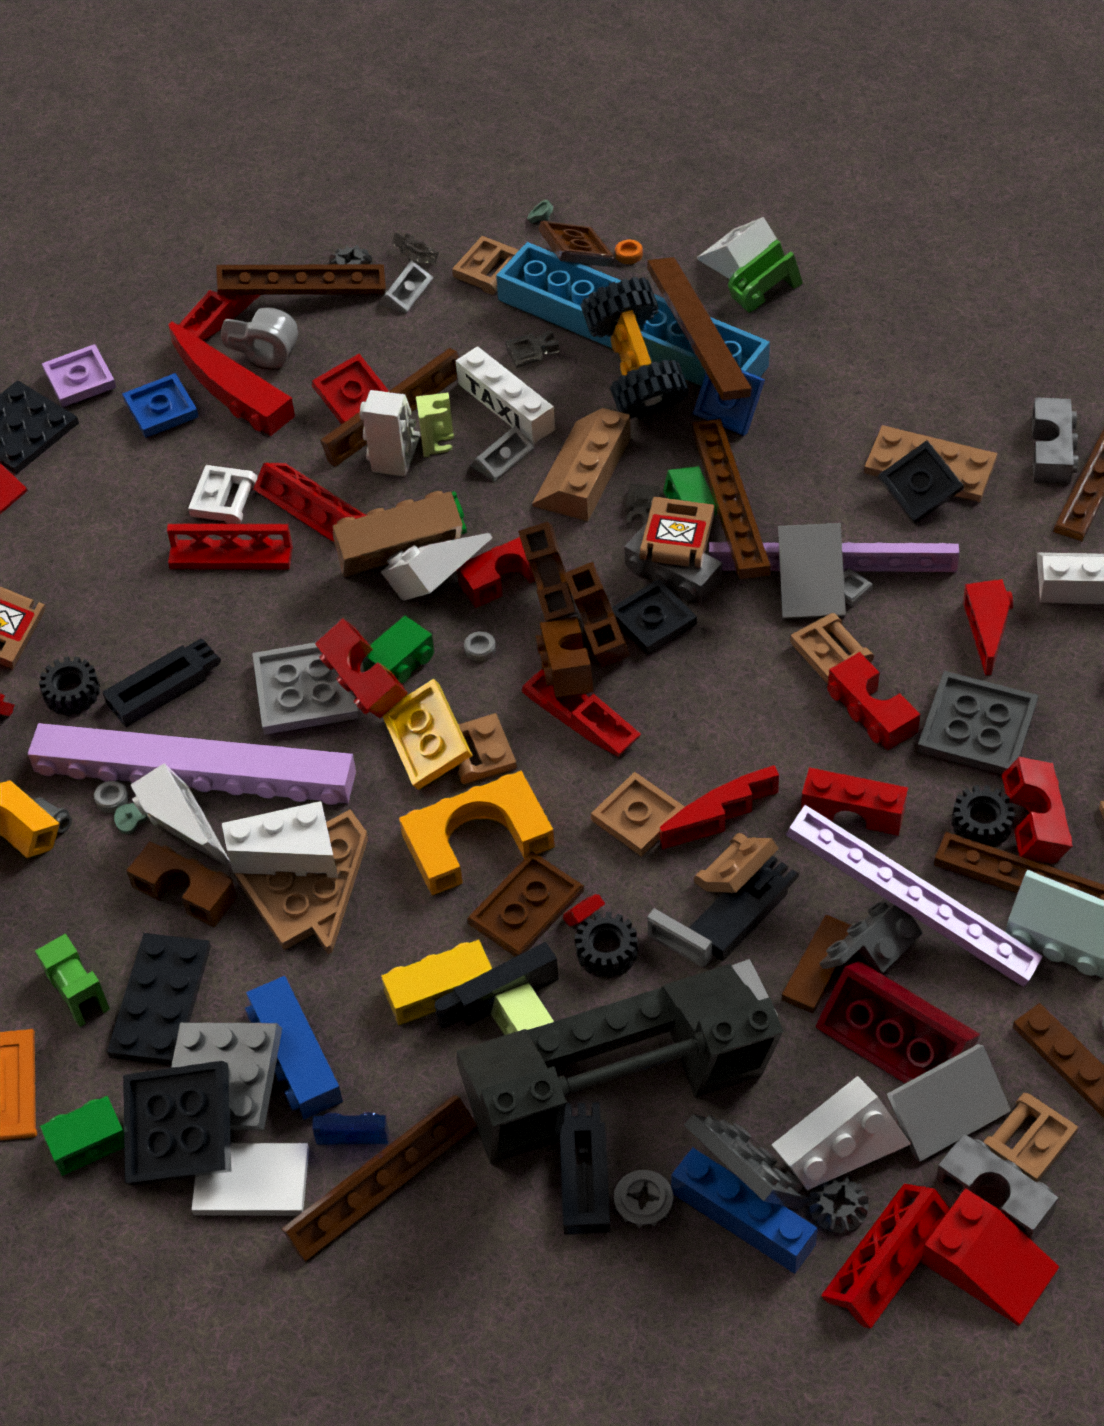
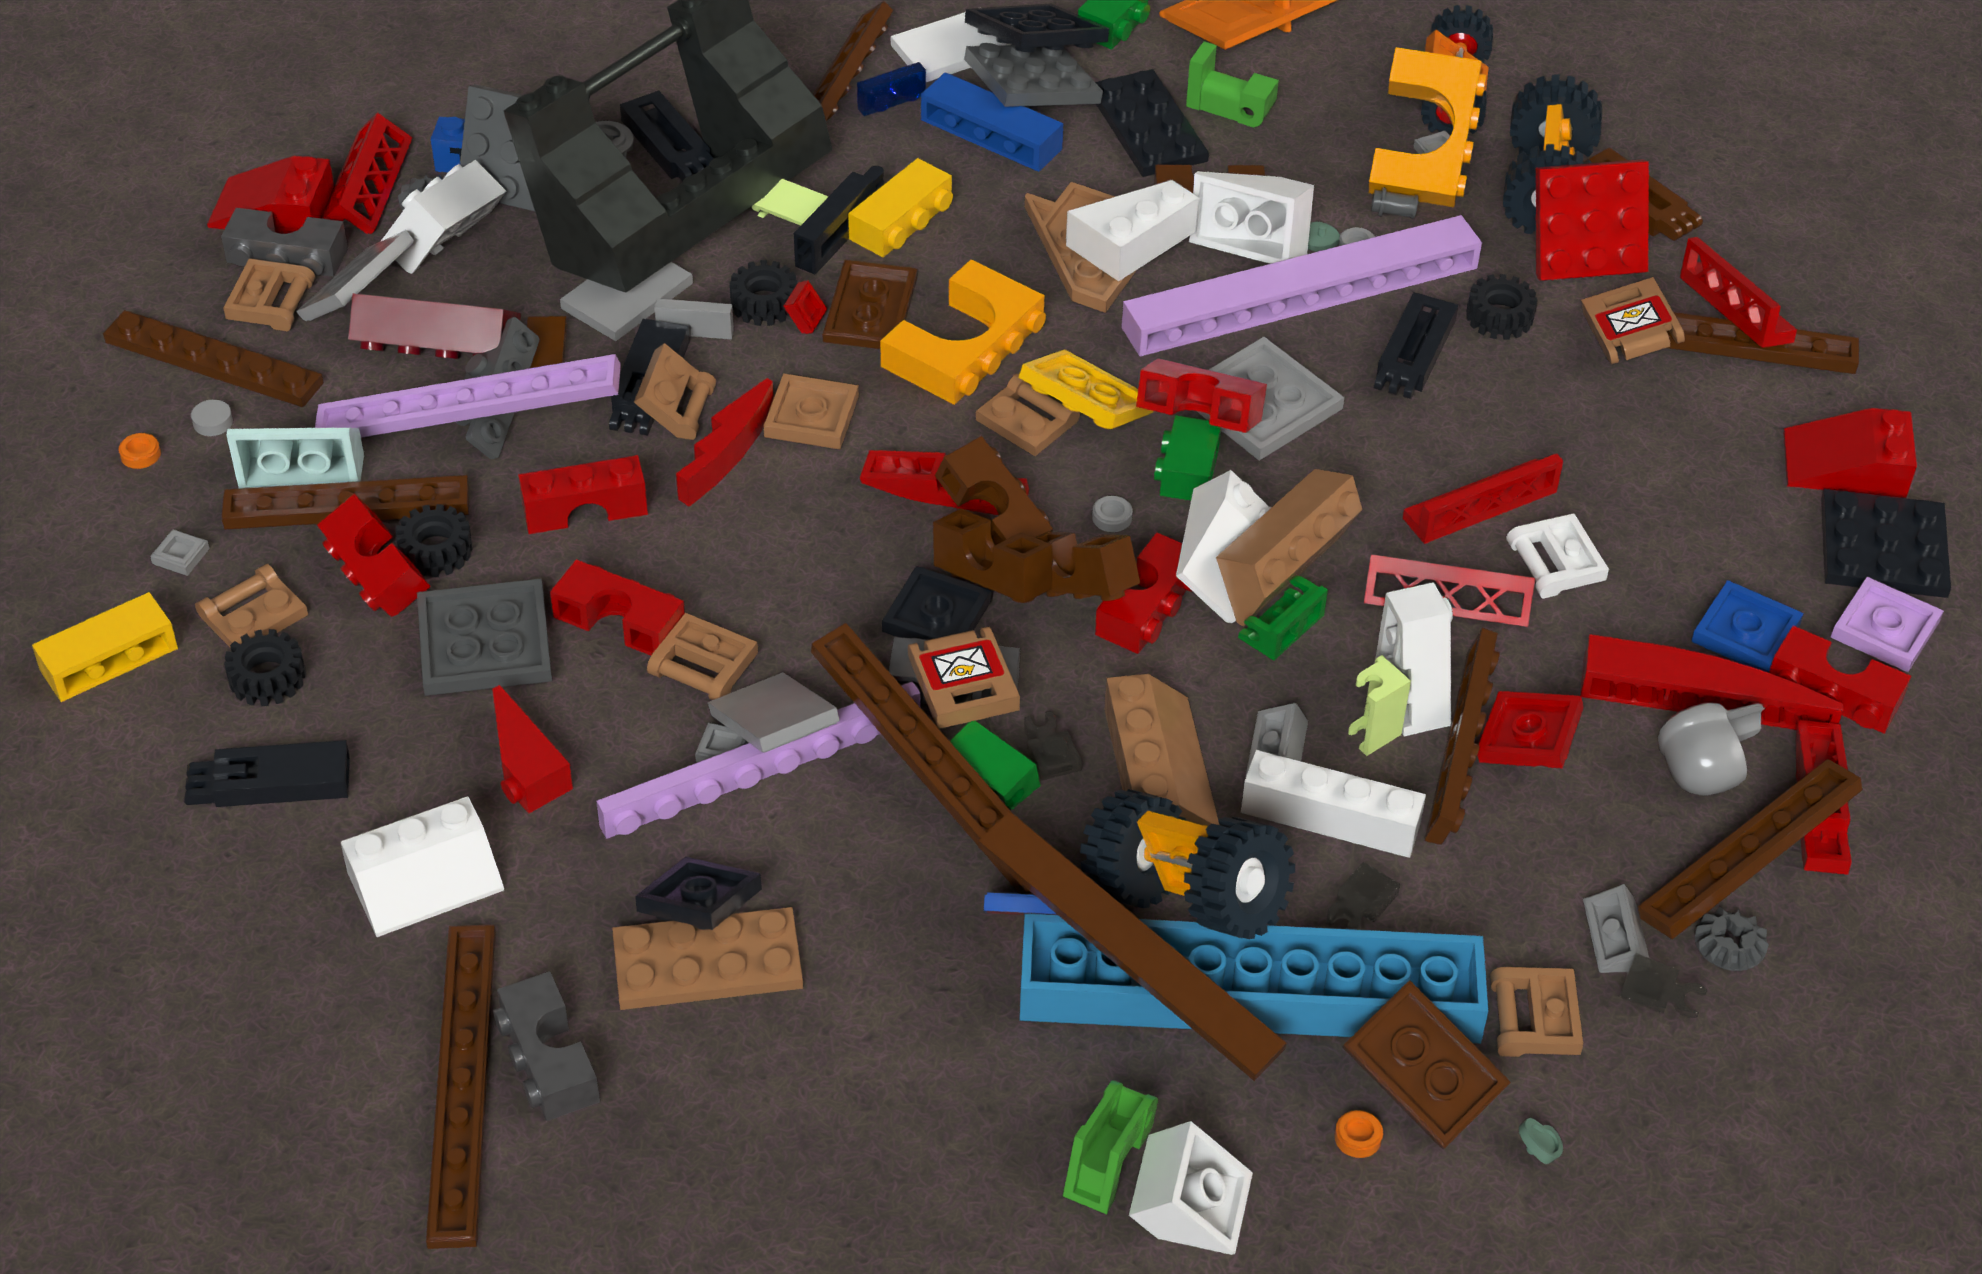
camera: 145 degrees right, 5 degrees down
(142, 339) = (1867, 697): none -> red arch

